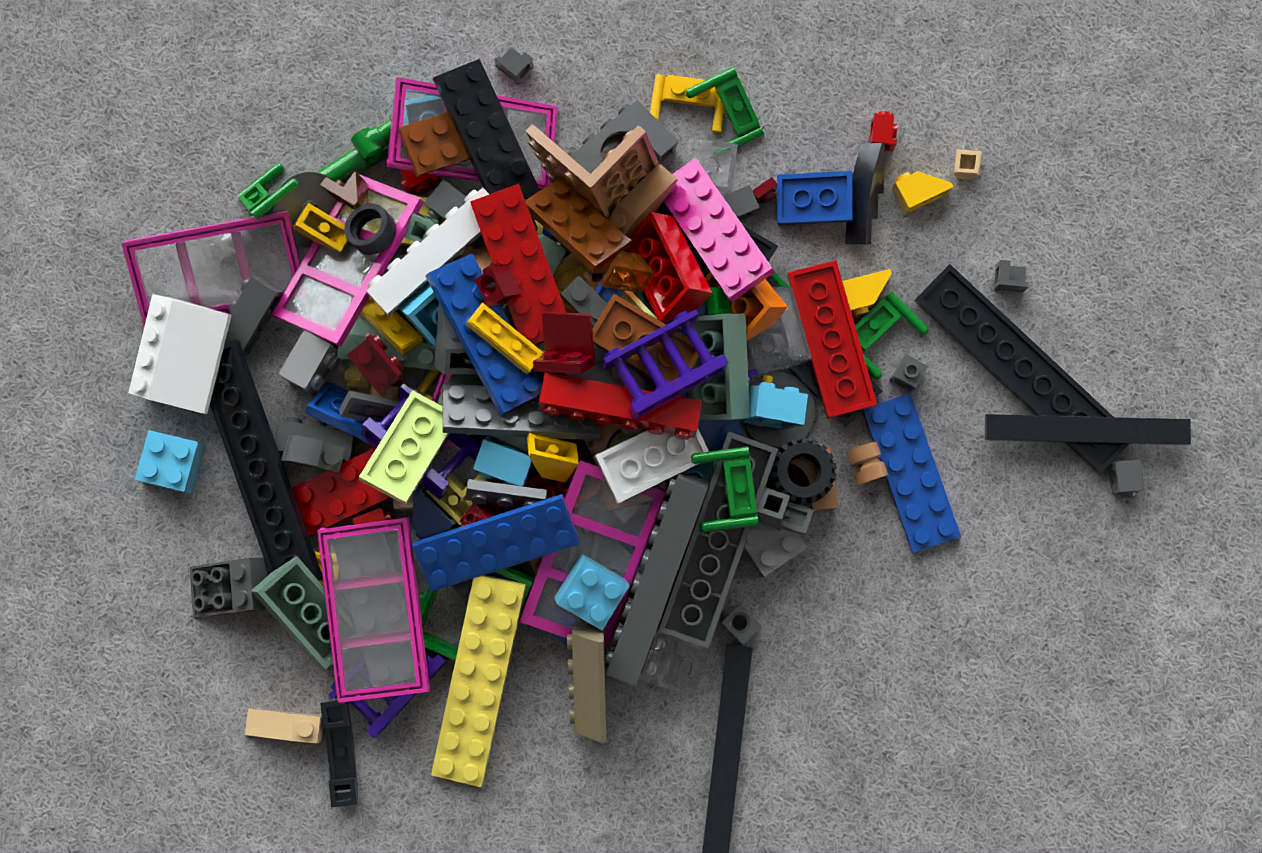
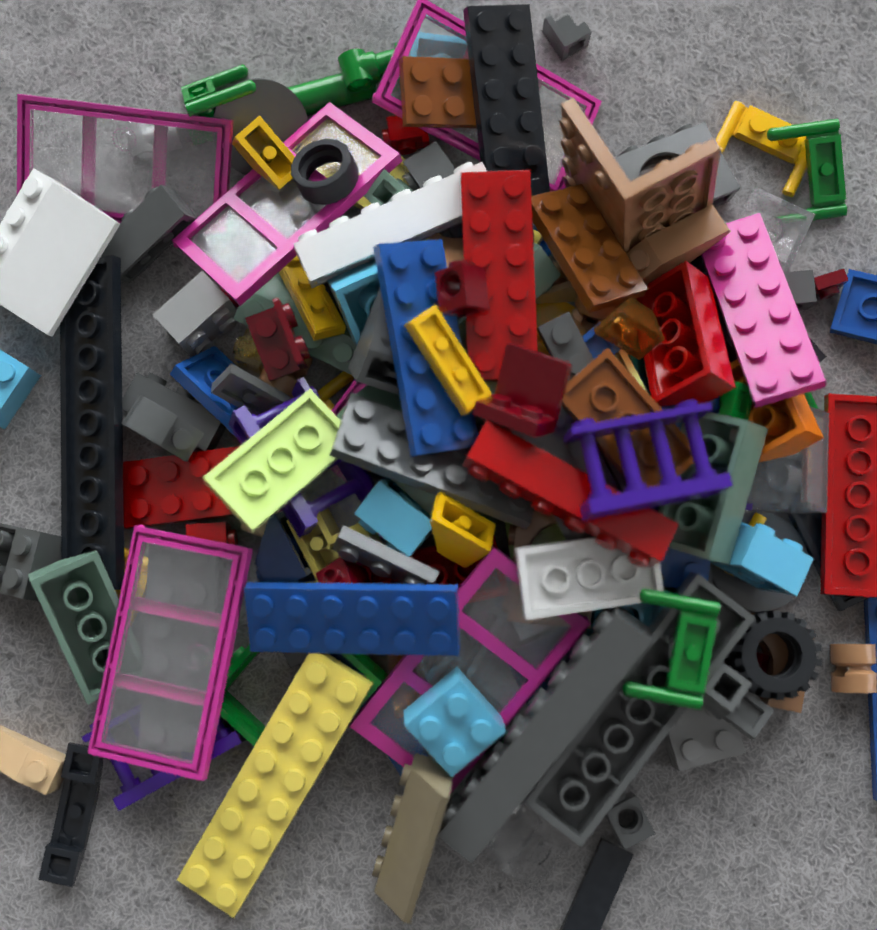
camera: 20 degrees right, 0 degrees up
(351, 194) = (315, 122): slope -> none

